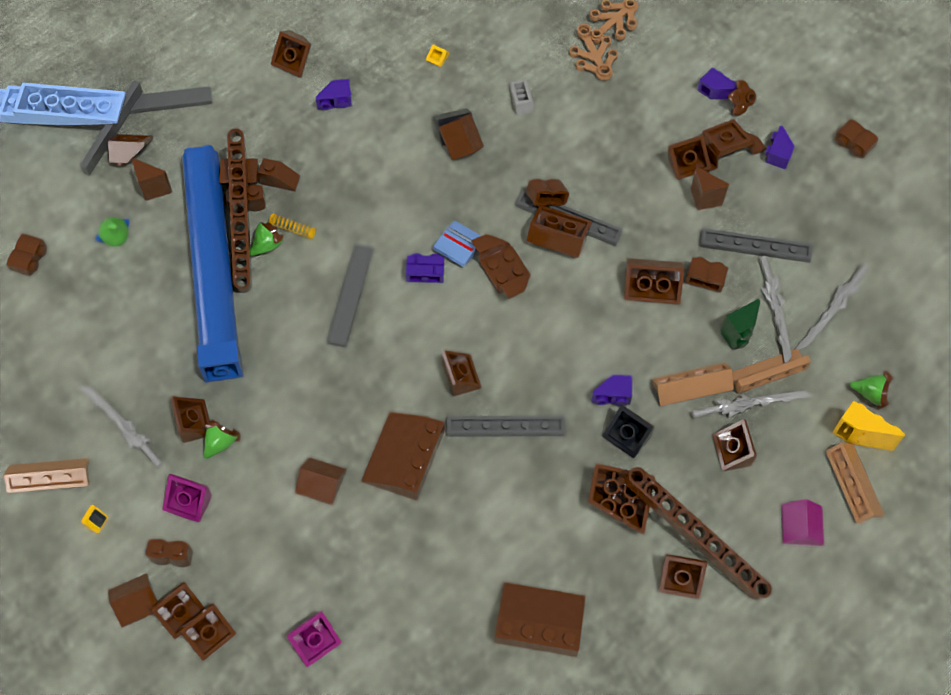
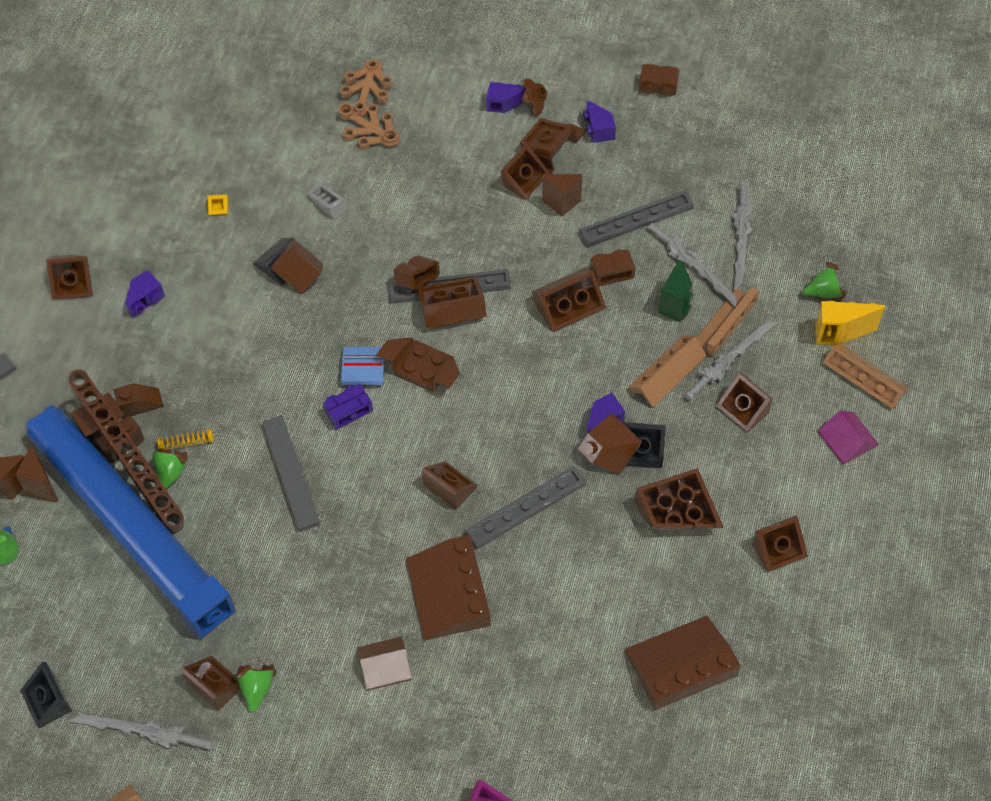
camera: 30 degrees left, 5 degrees down
(74, 358) = (45, 696): none -> black slope
(169, 193) = (34, 478): none -> reddish brown slope
(186, 498) = (262, 760): magenta slope -> none
(601, 416) = (610, 444): none -> reddish brown slope
(707, 535) = (779, 494): reddish brown beam -> none

